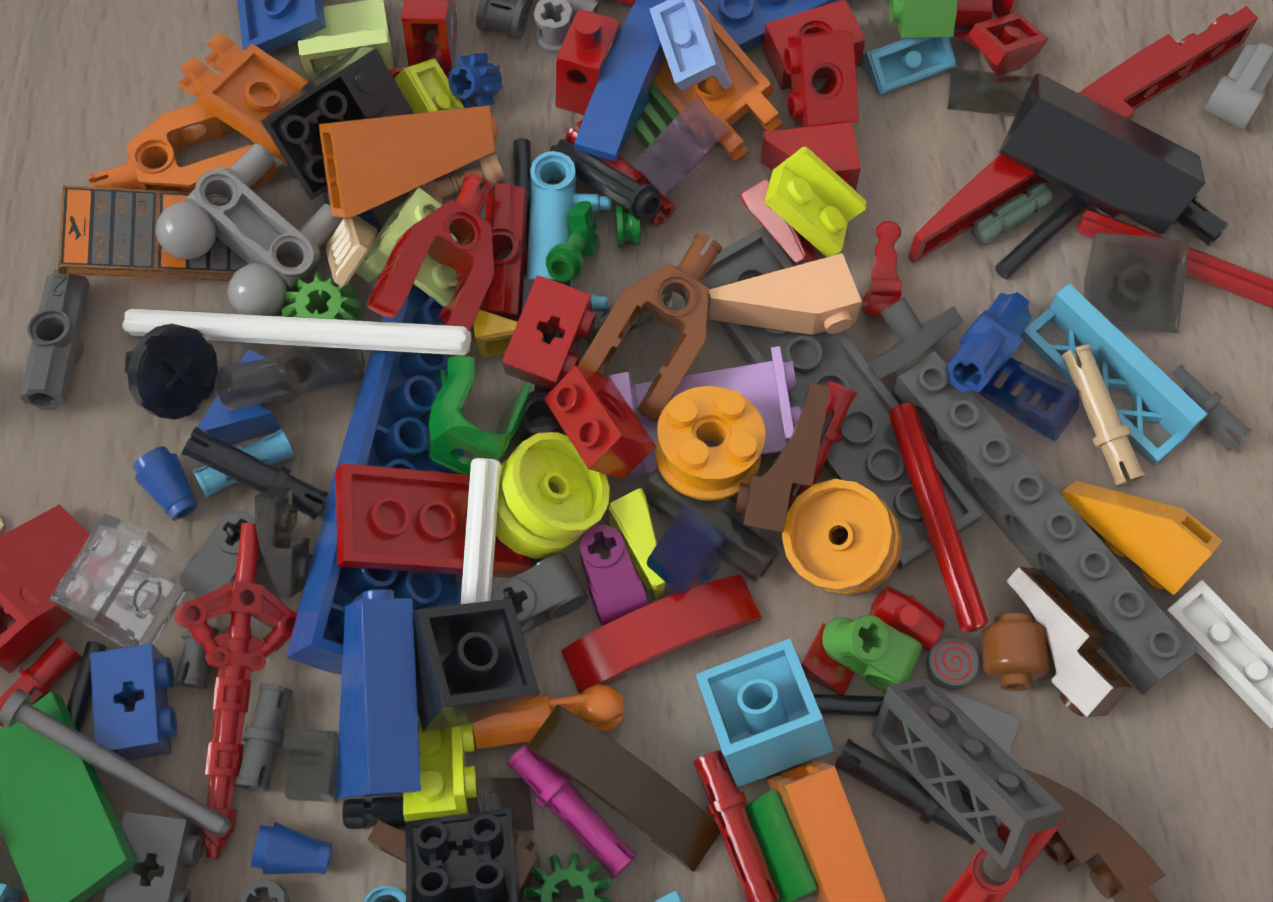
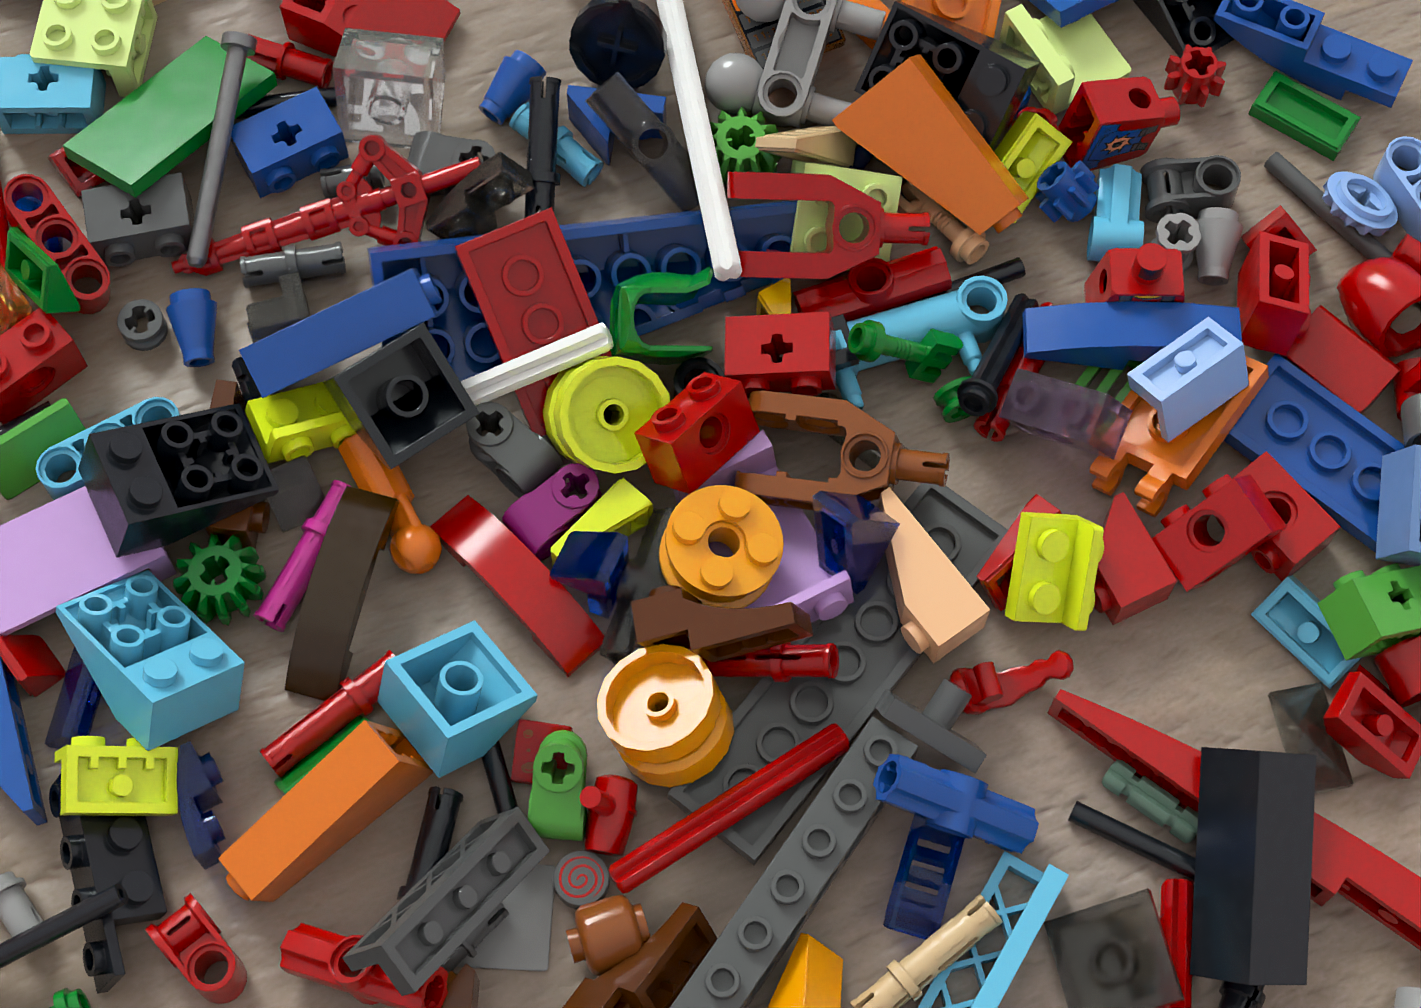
camera: 70 degrees right, 0 degrees up
(522, 61) = (1116, 212): none -> medium azure piece
(743, 333) = (851, 535): none -> clear blue slope

